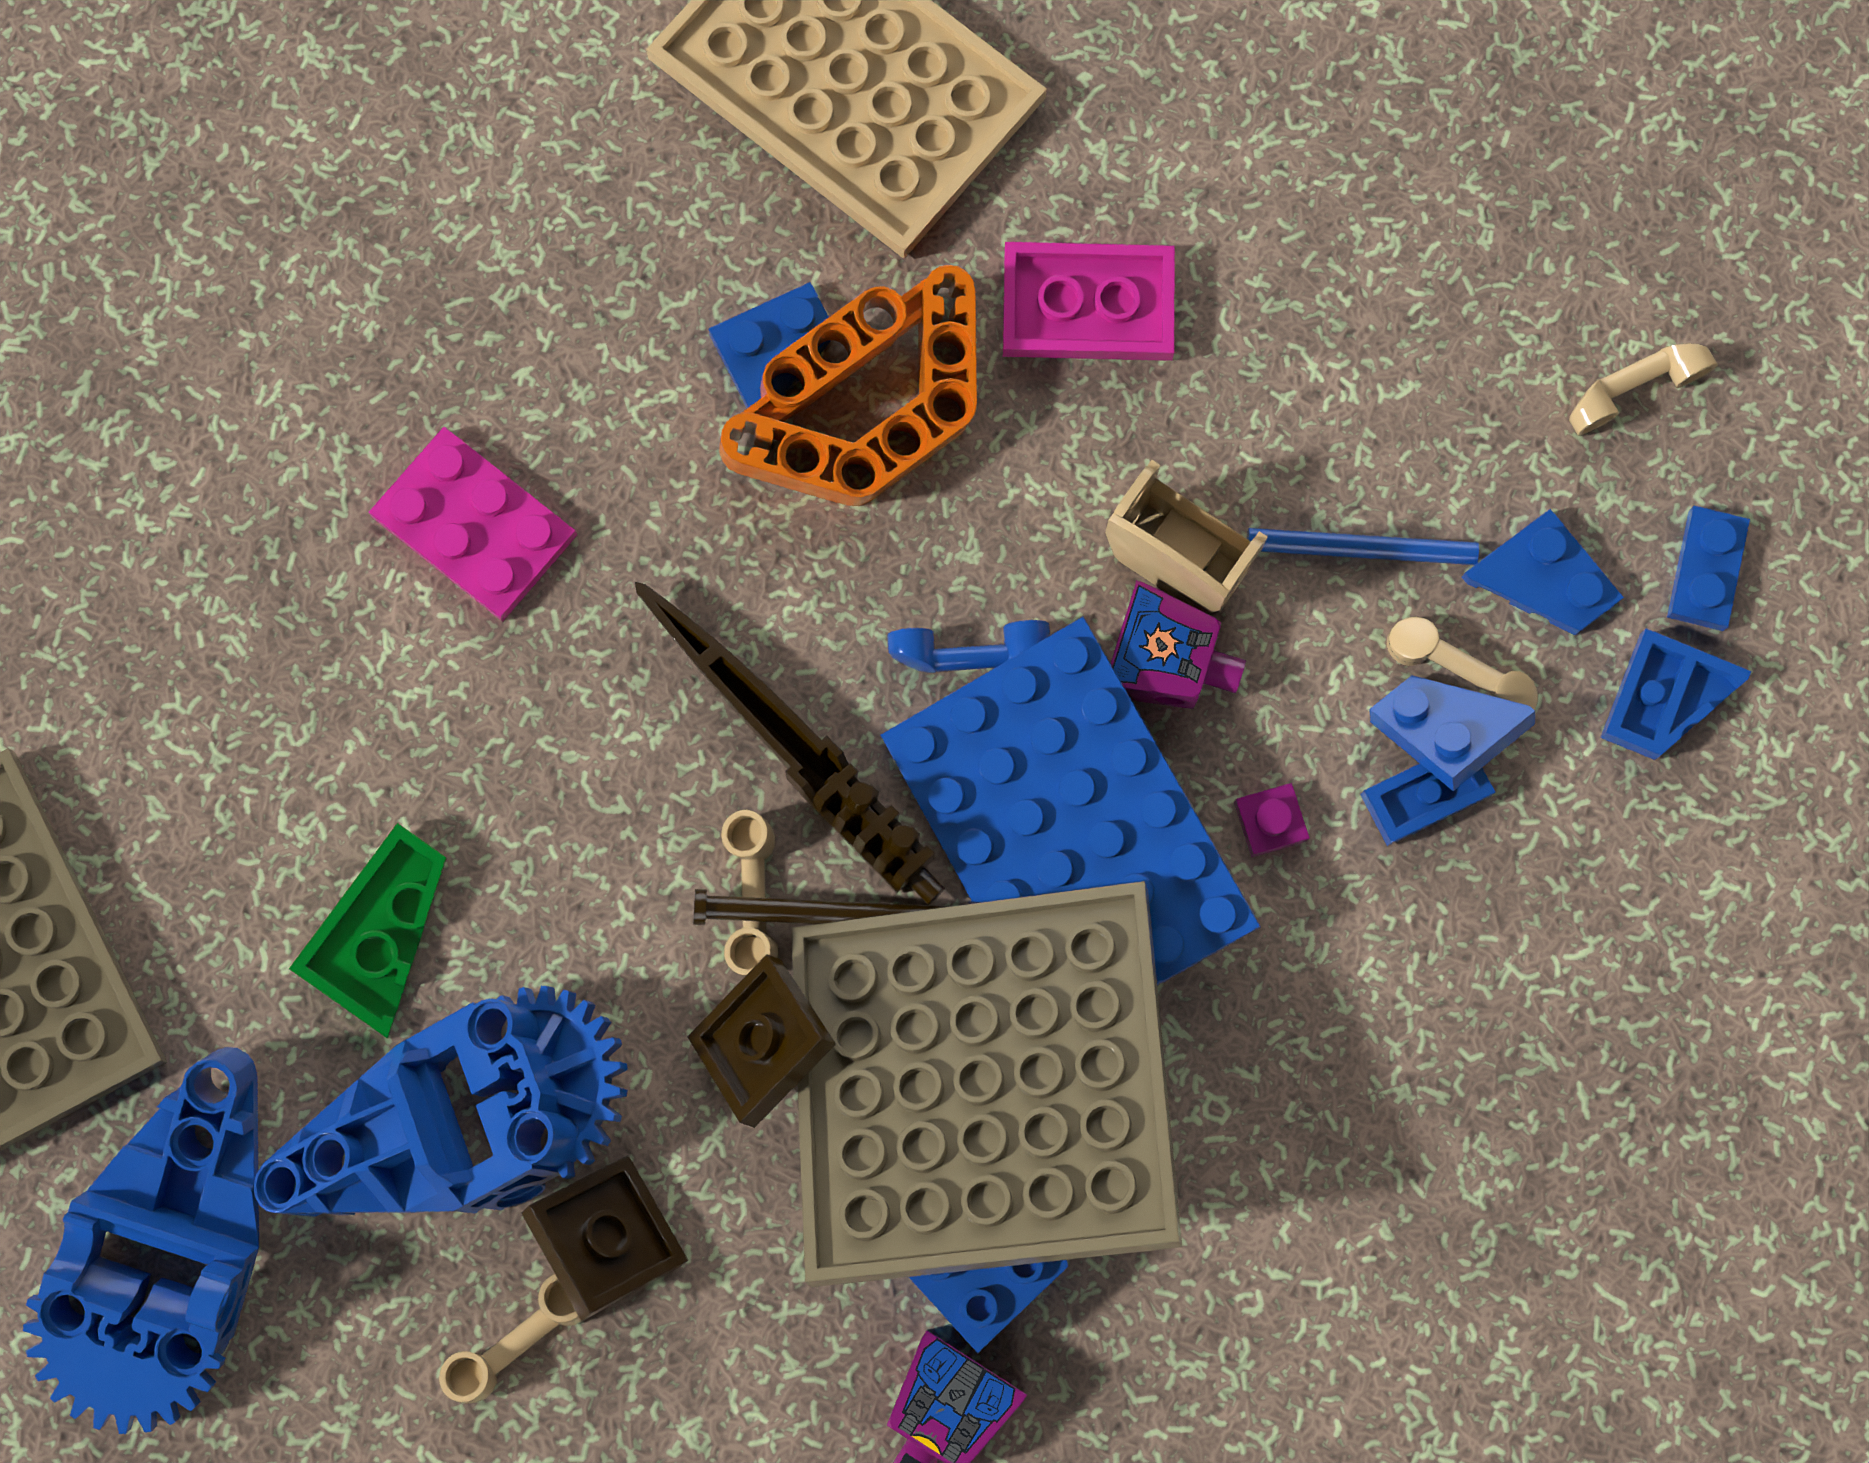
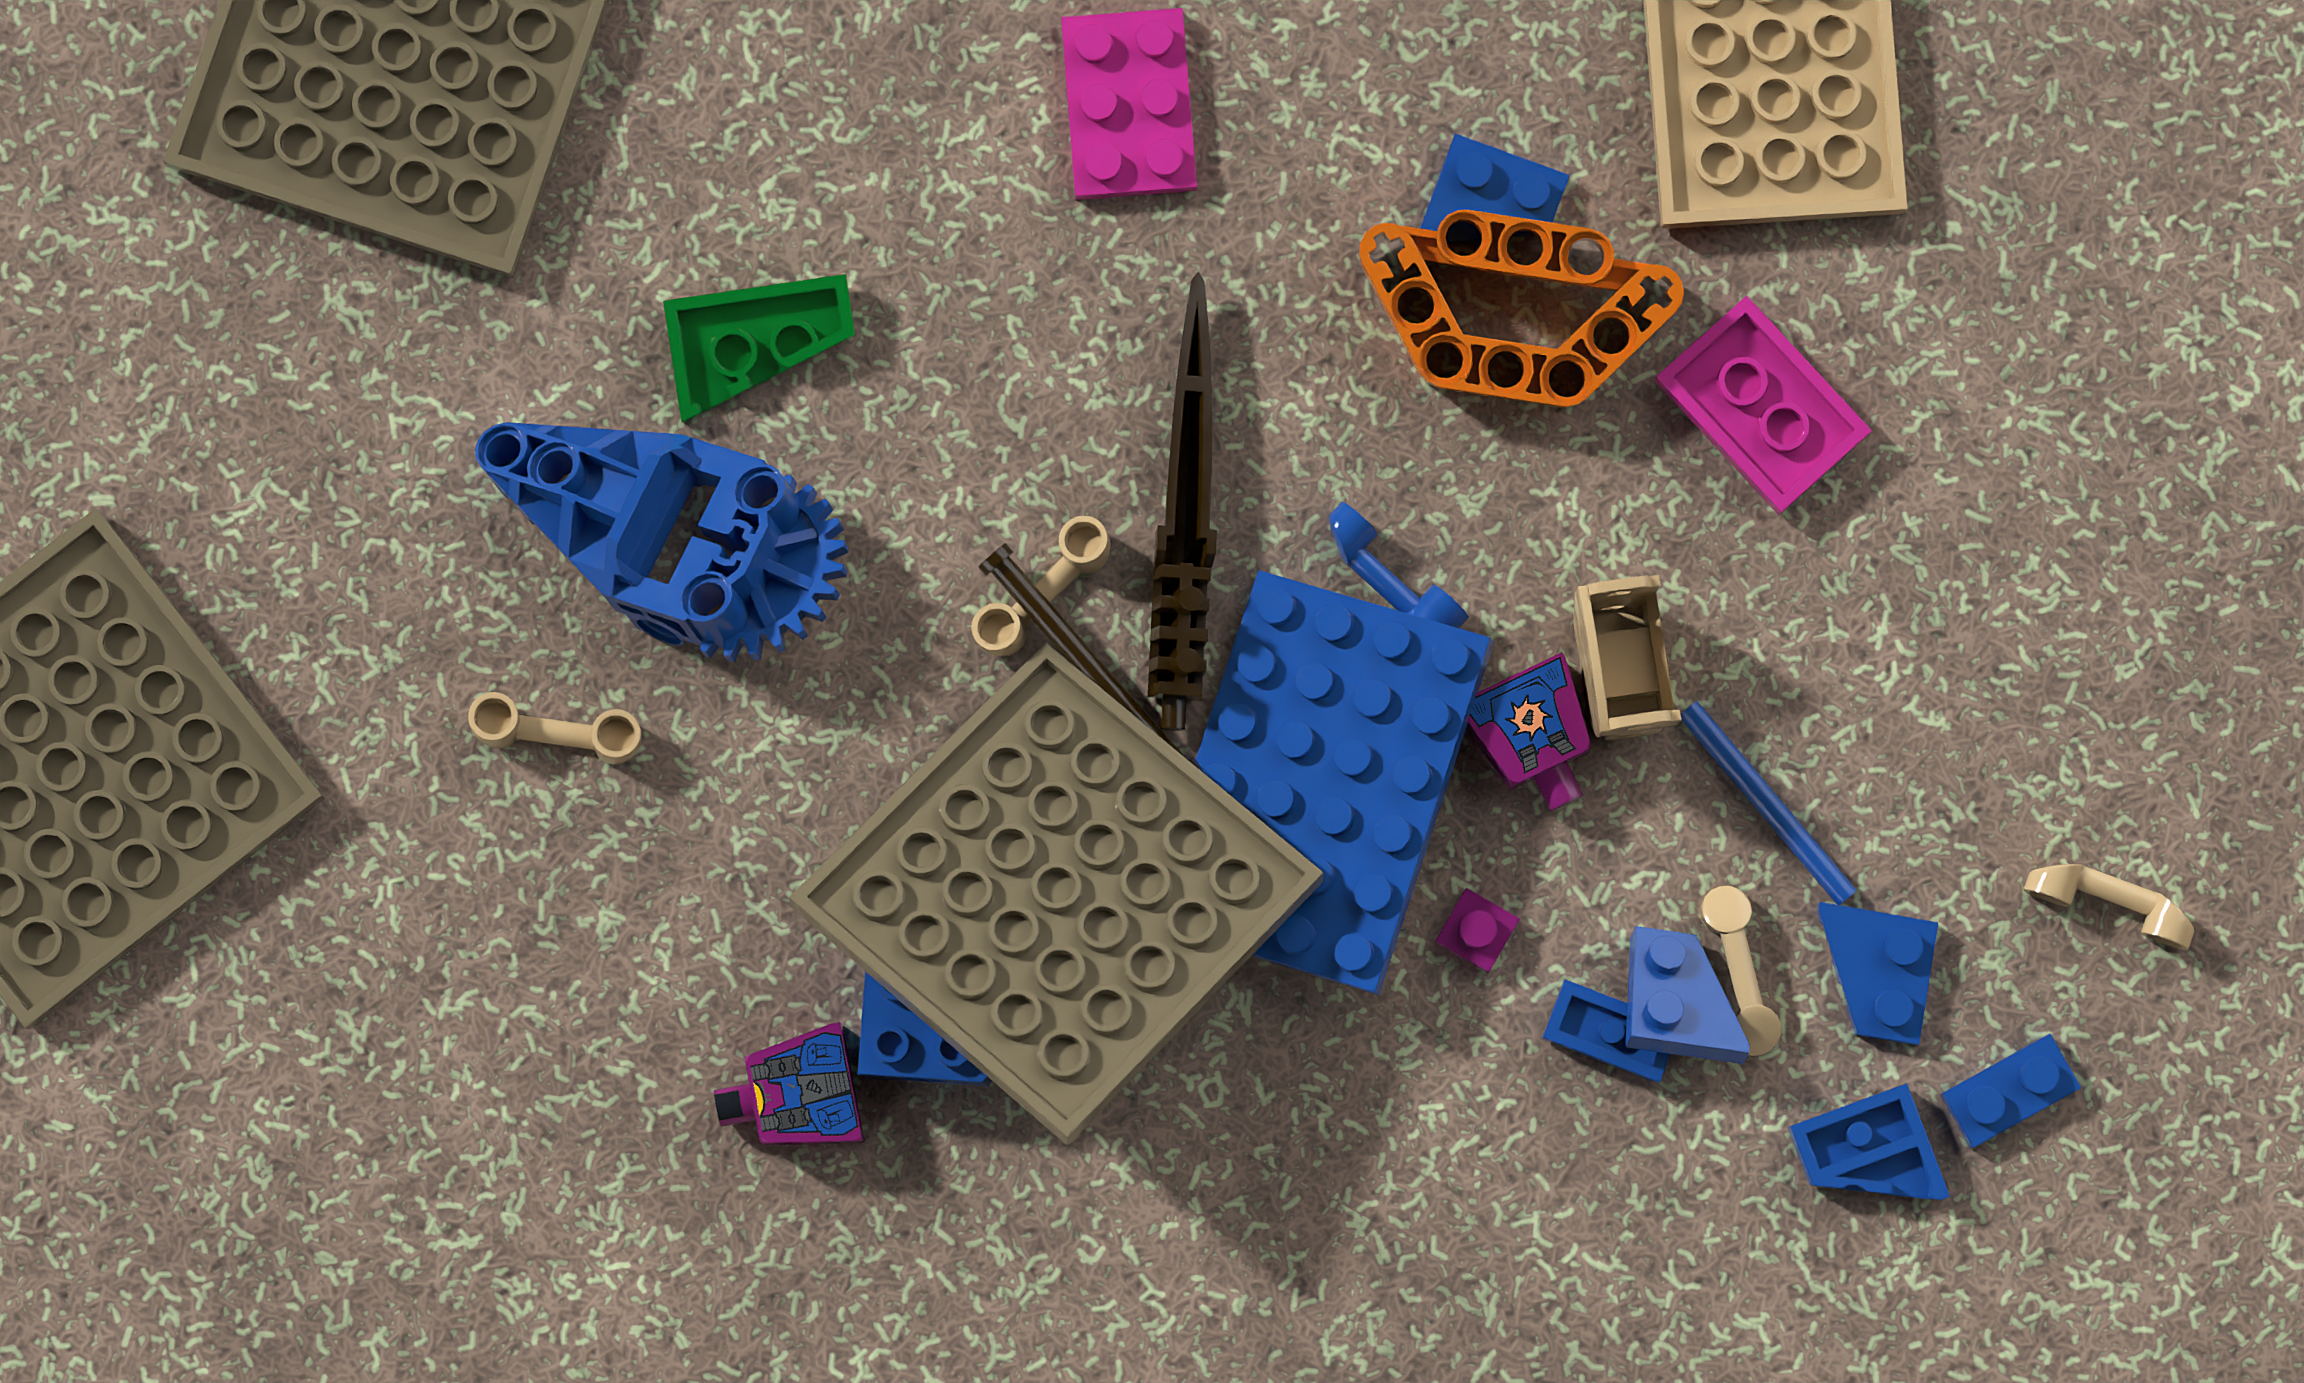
camera: 50 degrees right, 5 degrees up
(173, 1198) = (424, 385): blue connector -> none
(604, 1237) = (687, 722): dark brown plate -> none
(761, 1041) = (937, 699): dark brown plate -> none

